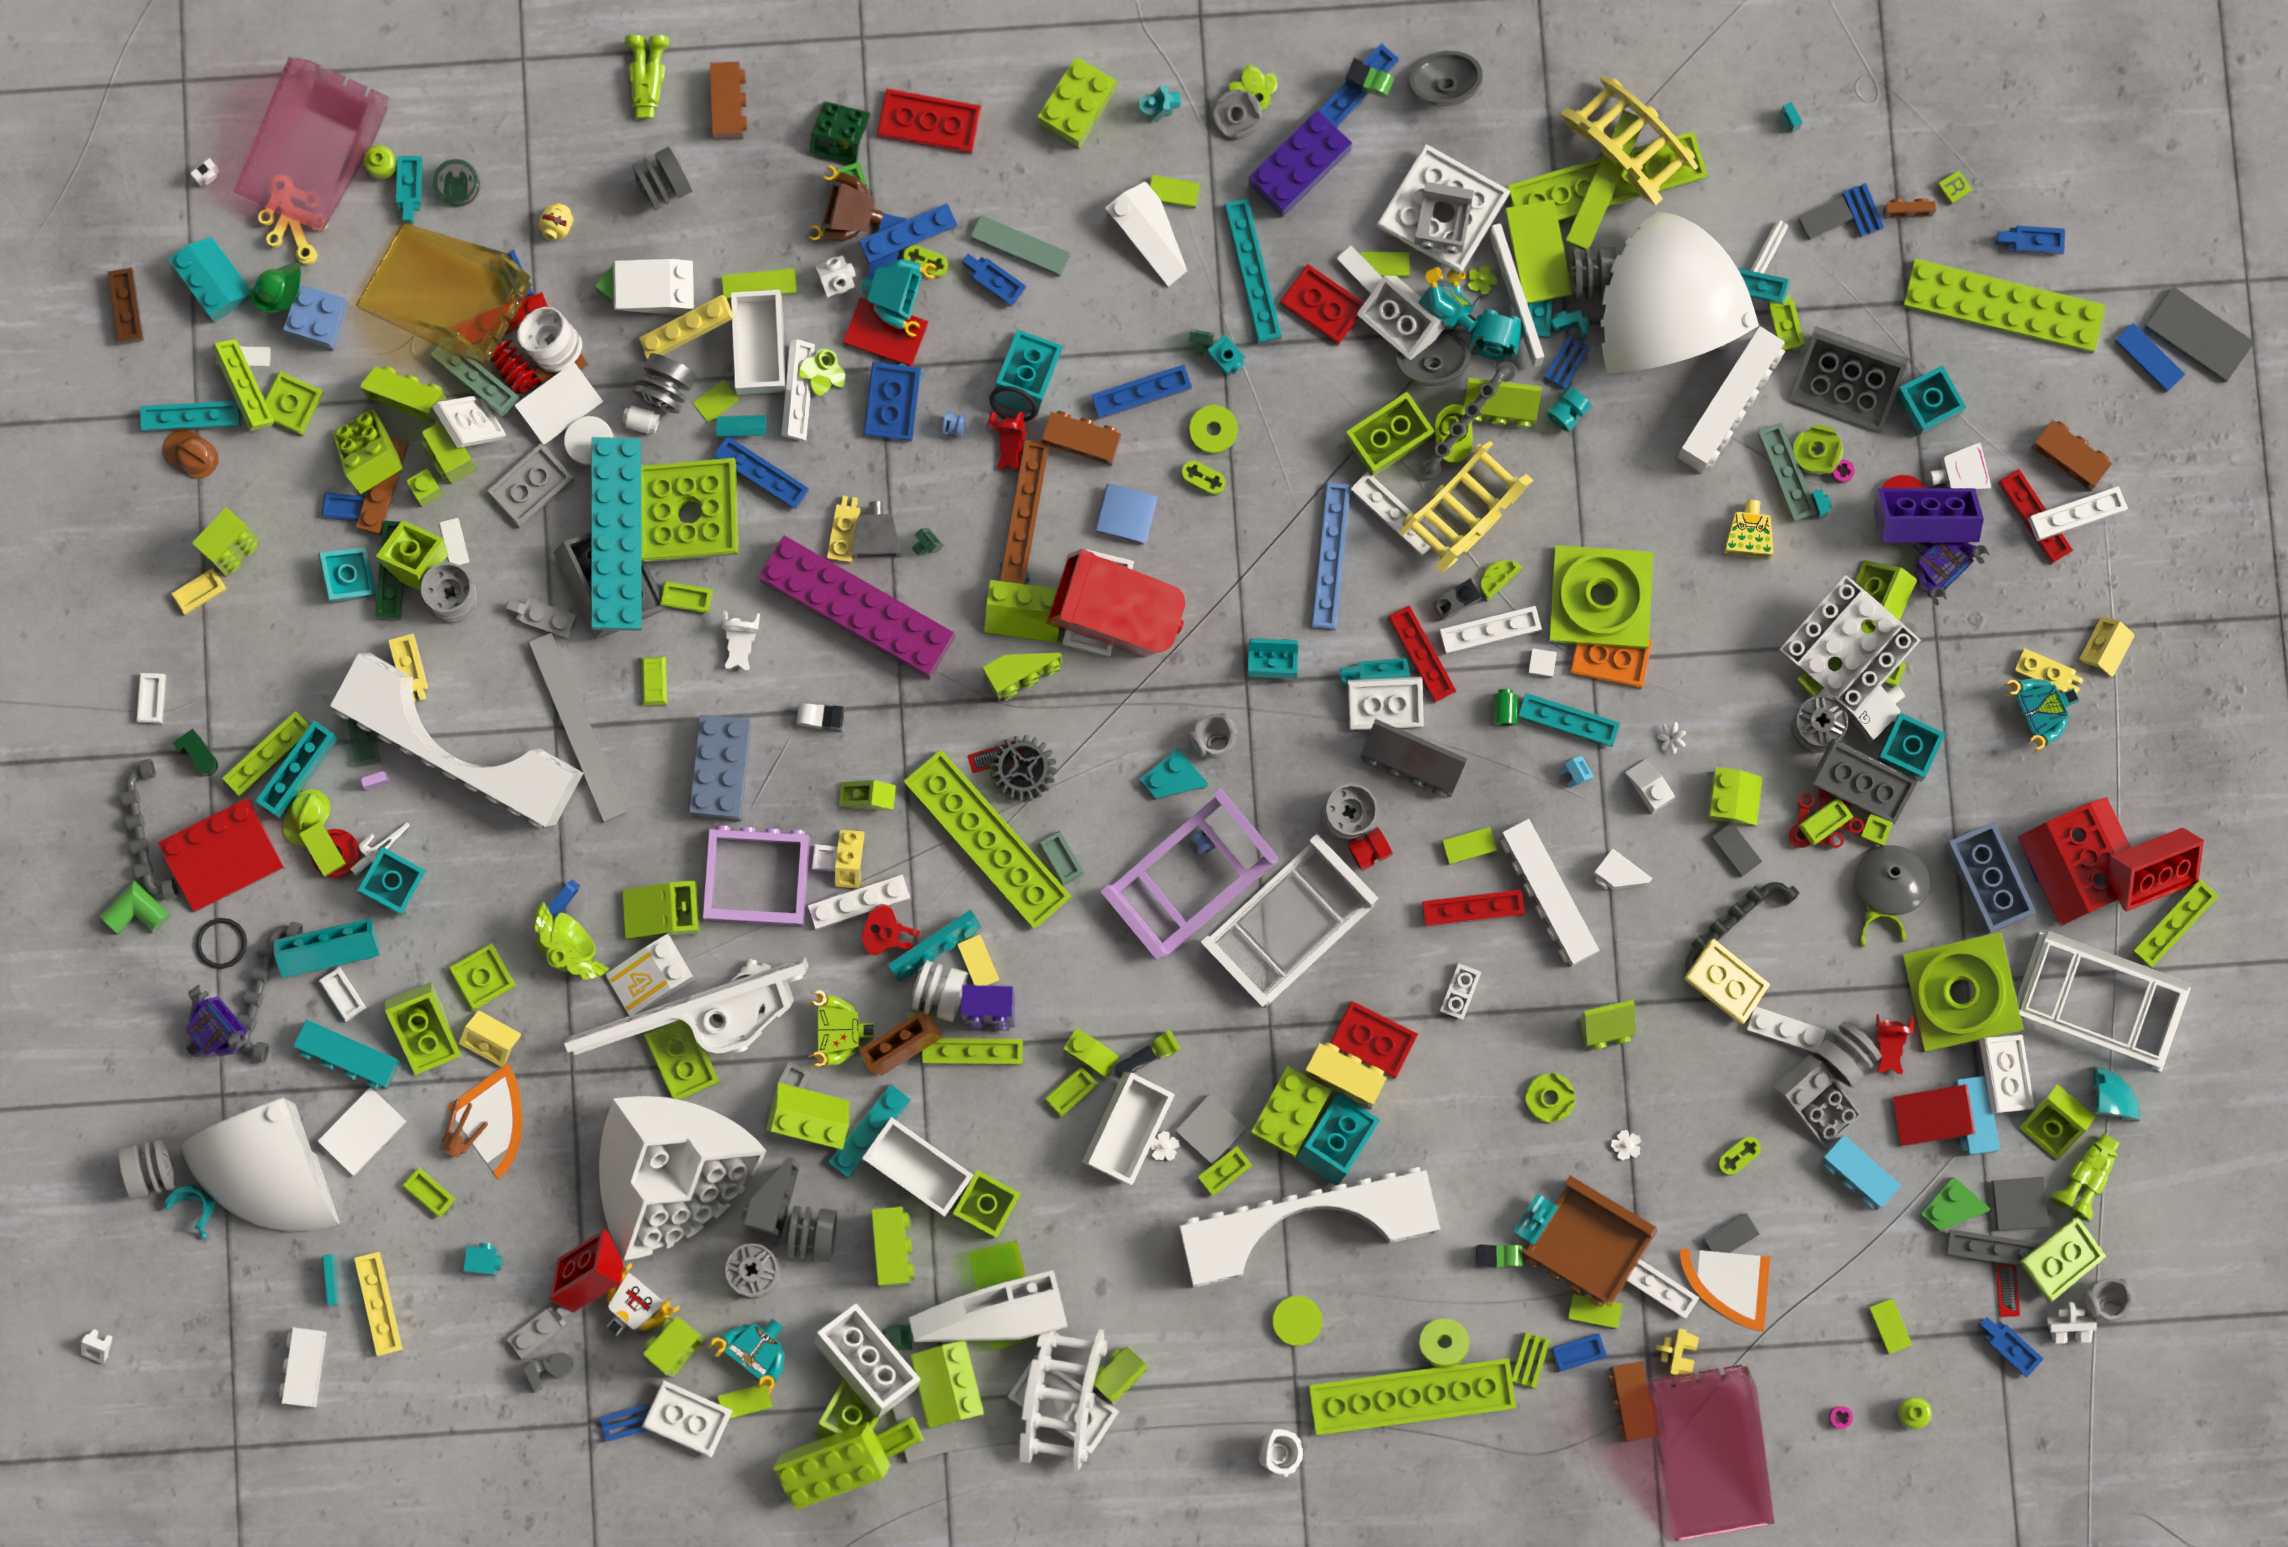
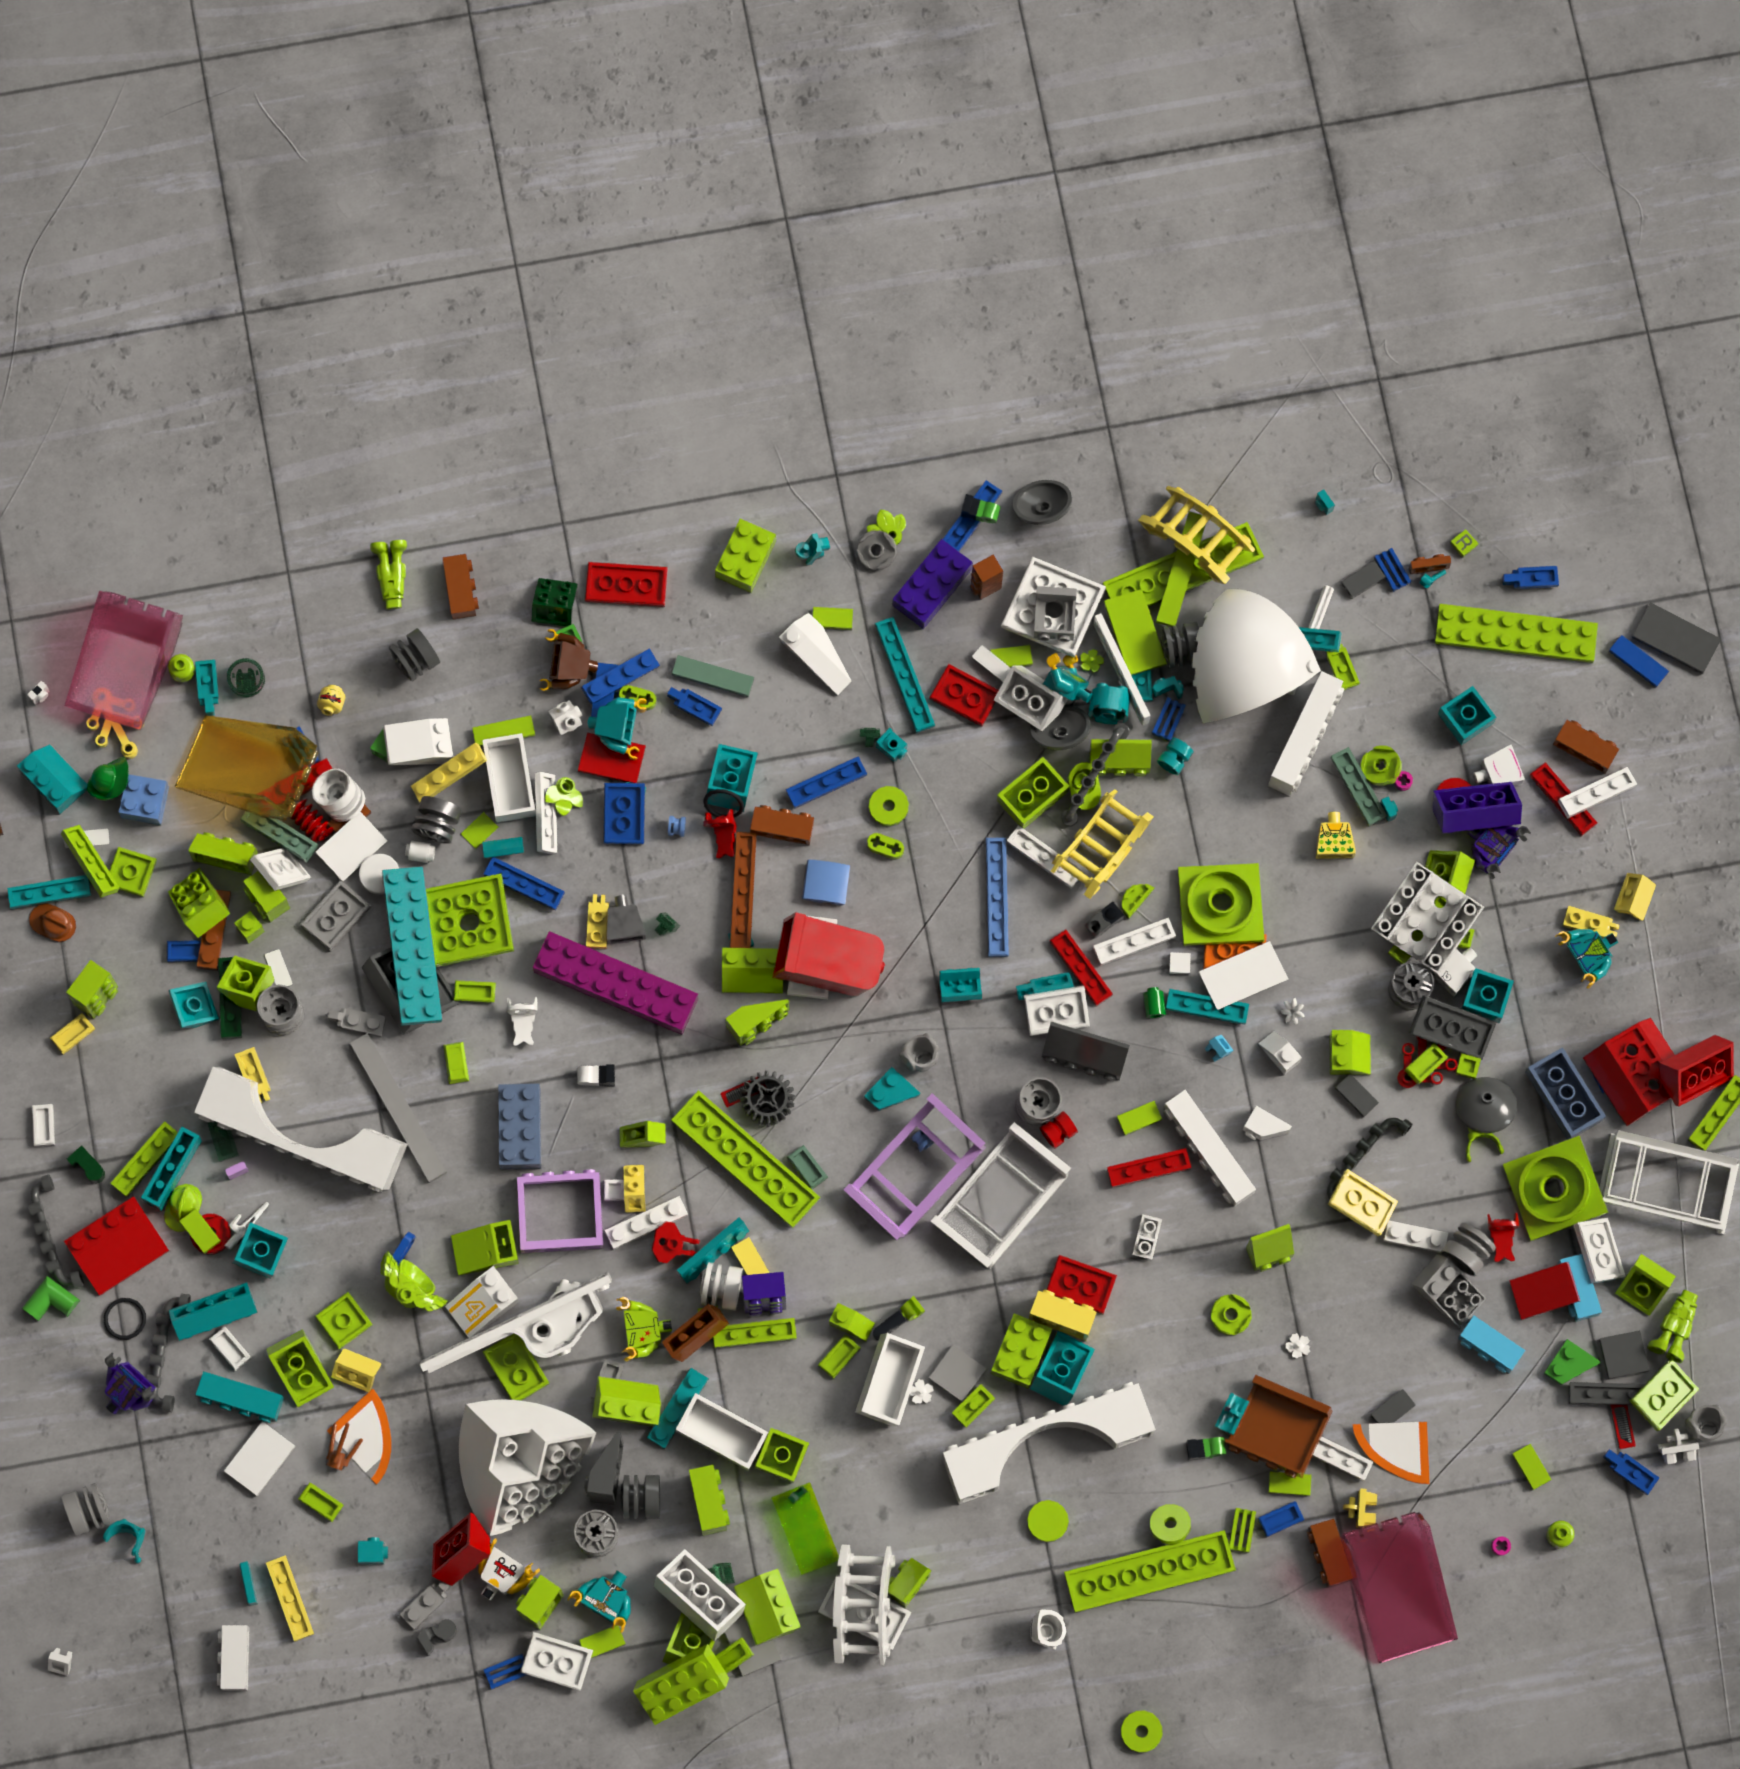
camera: 10 degrees left, 5 degrees down
(263, 1169) = (181, 1498): white brick -> none
(995, 1313) = (800, 1542): white wedge -> none
(1000, 1254) = (796, 1496): none -> dark green tile
(1366, 163) = (986, 577): none -> dark orange brick
(1617, 687) = (1243, 975): none -> white sticker
(1735, 1151) = (1394, 1346): lime beam -> none
(1848, 379) = (1398, 706): dark grey slope -> none
(1904, 229) = (1427, 581): none -> teal hand
(2114, 1095) = (1688, 1258): teal brick -> none

